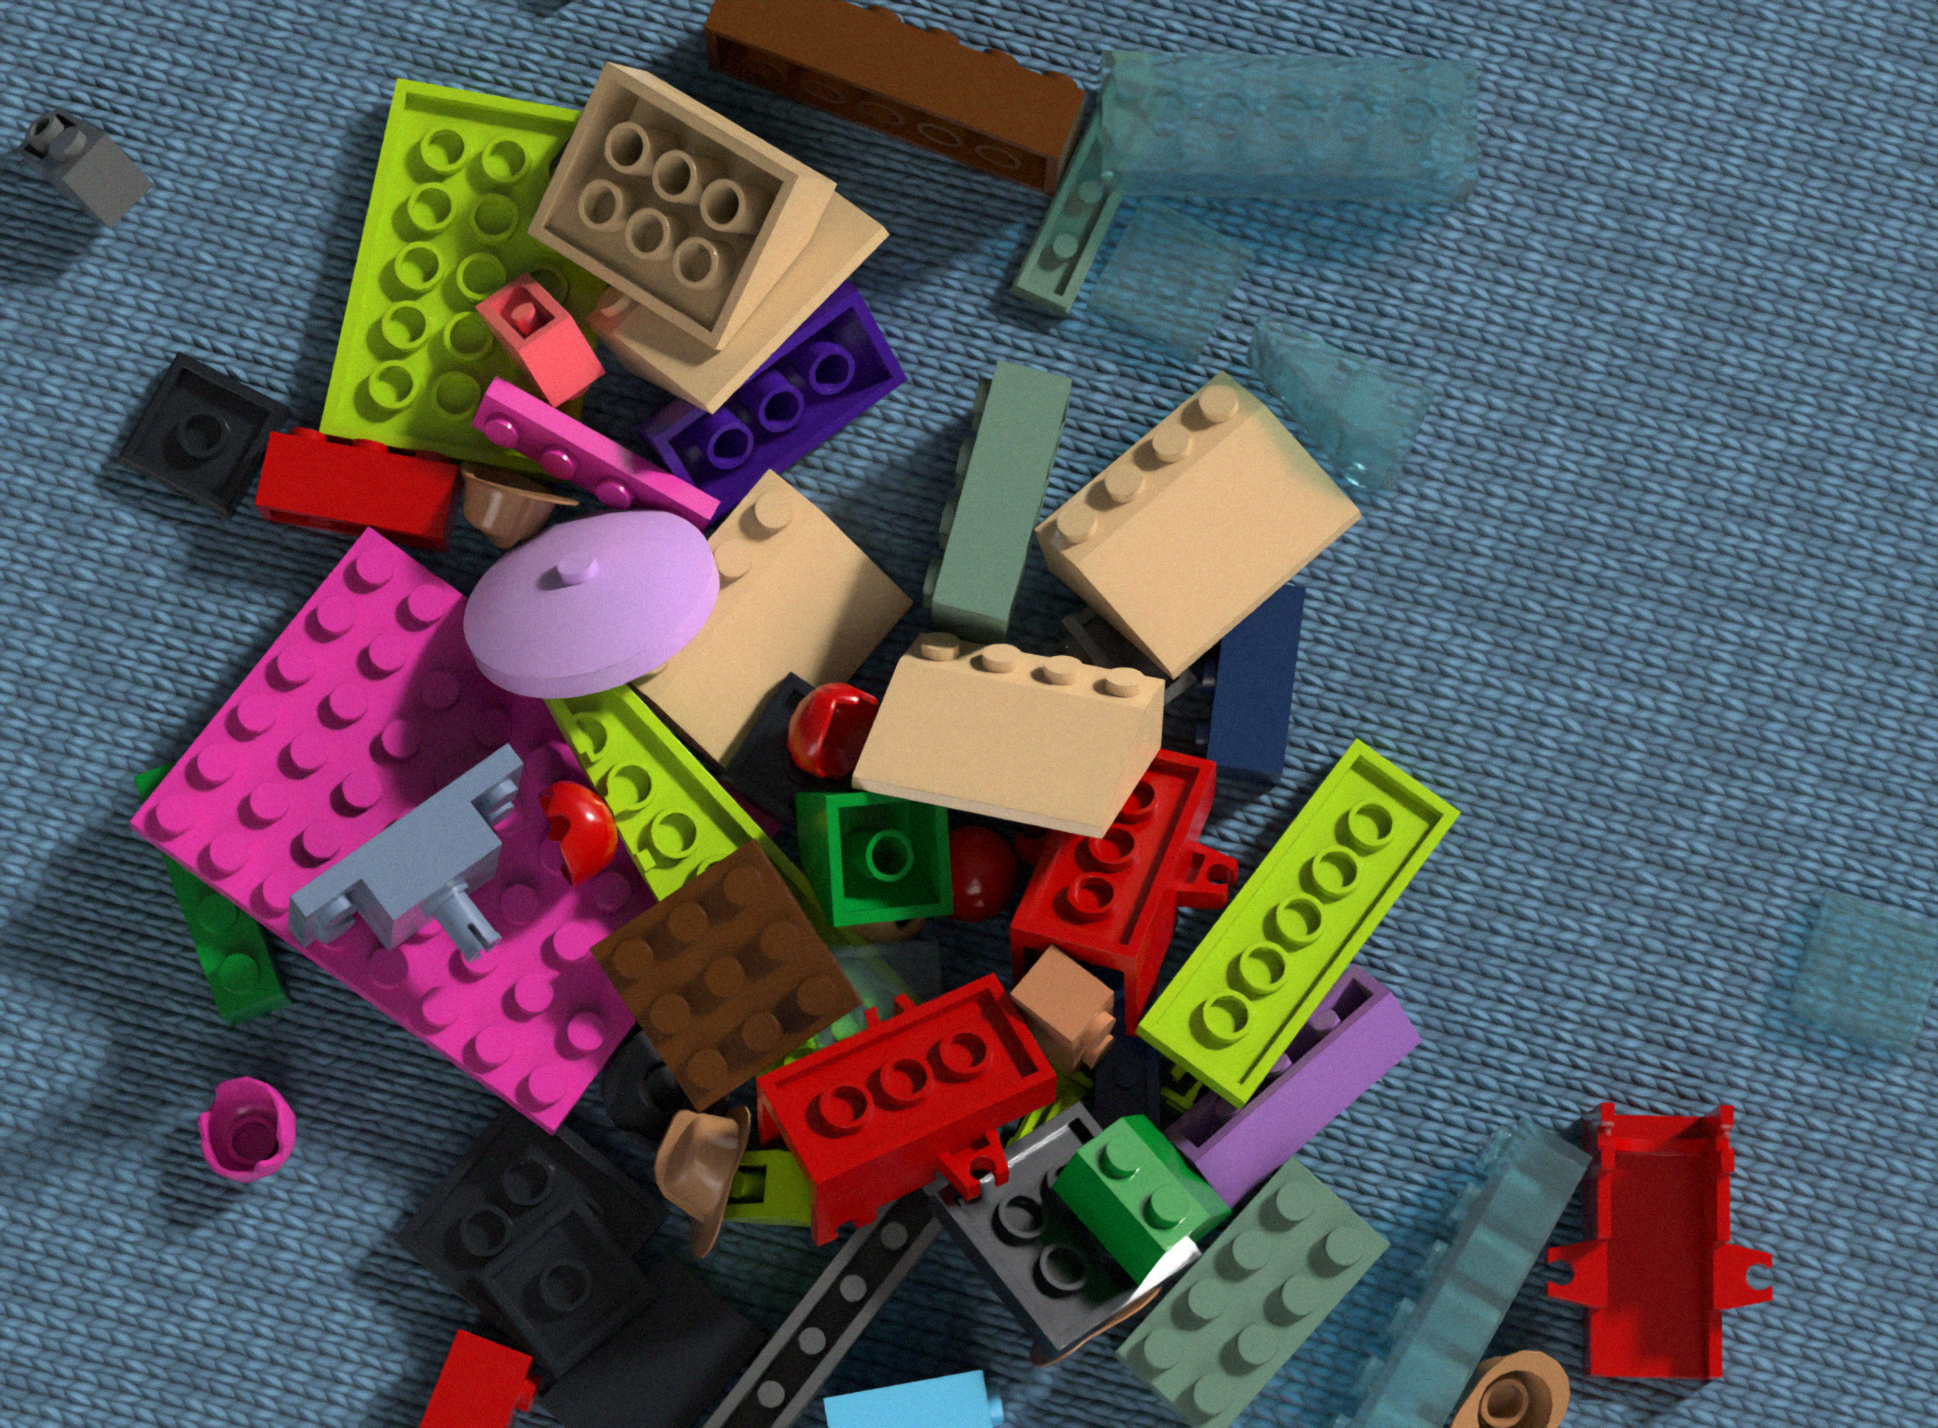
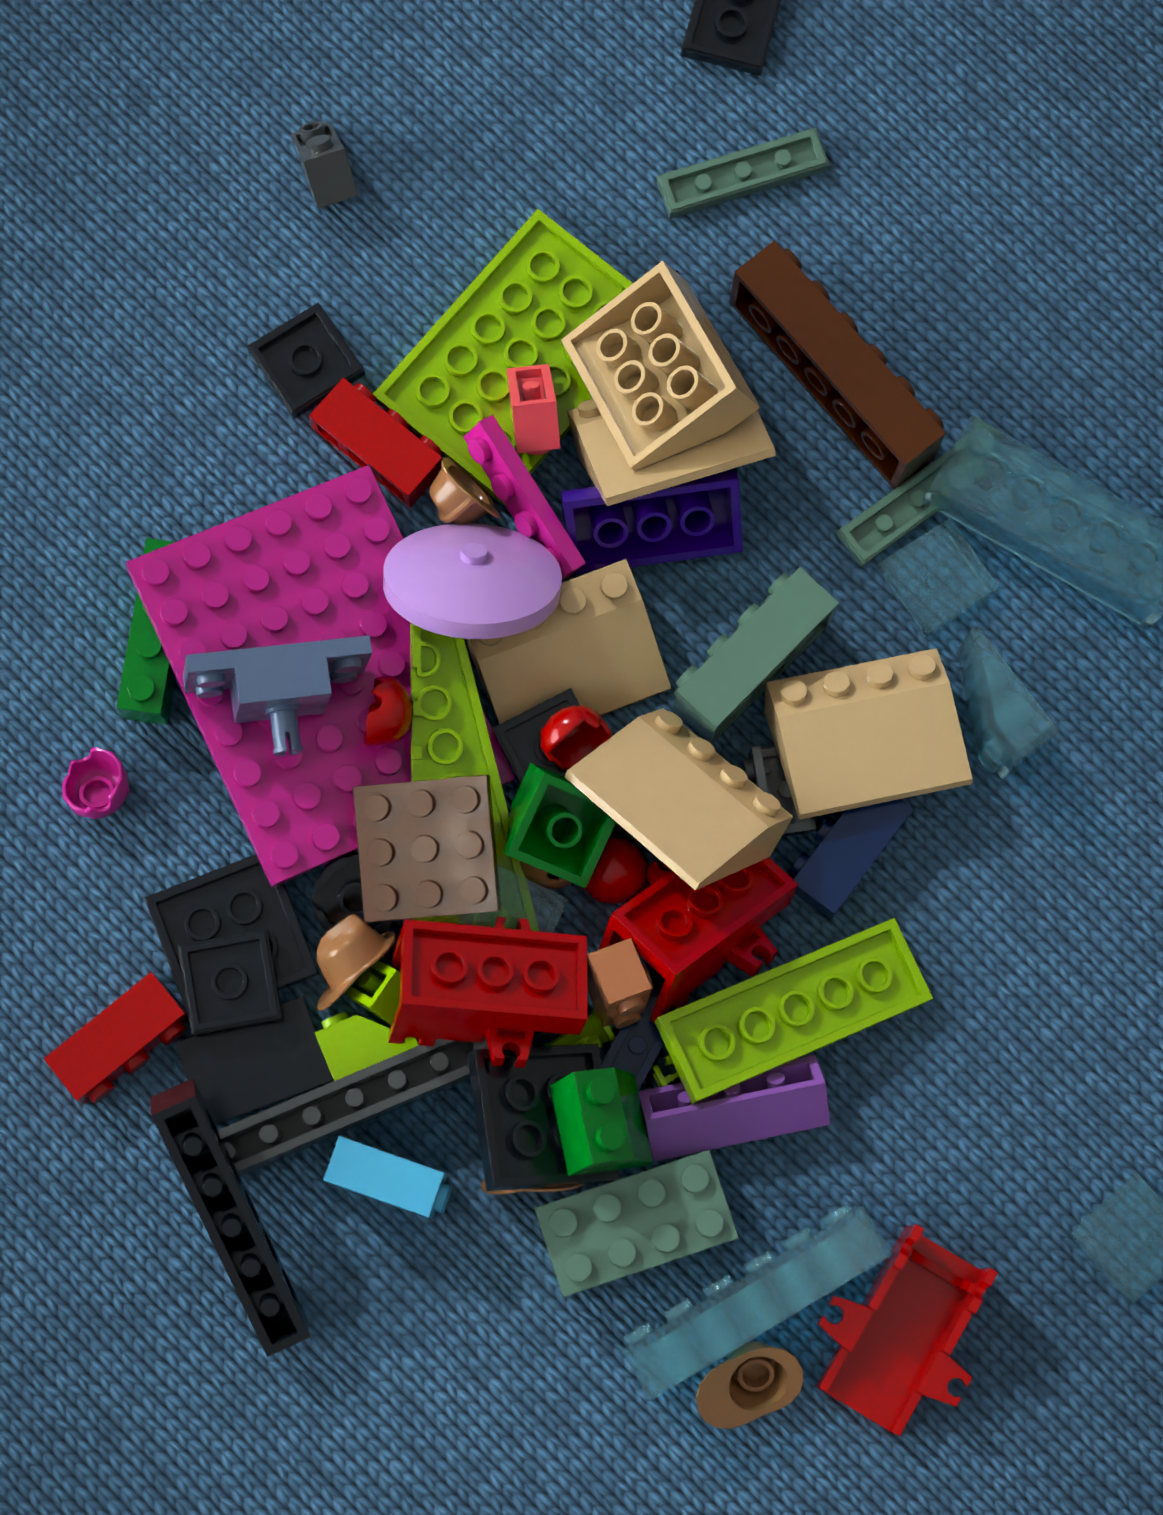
camera: 30 degrees right, 0 degrees up
(774, 1273) = (356, 1044): none -> lime slope

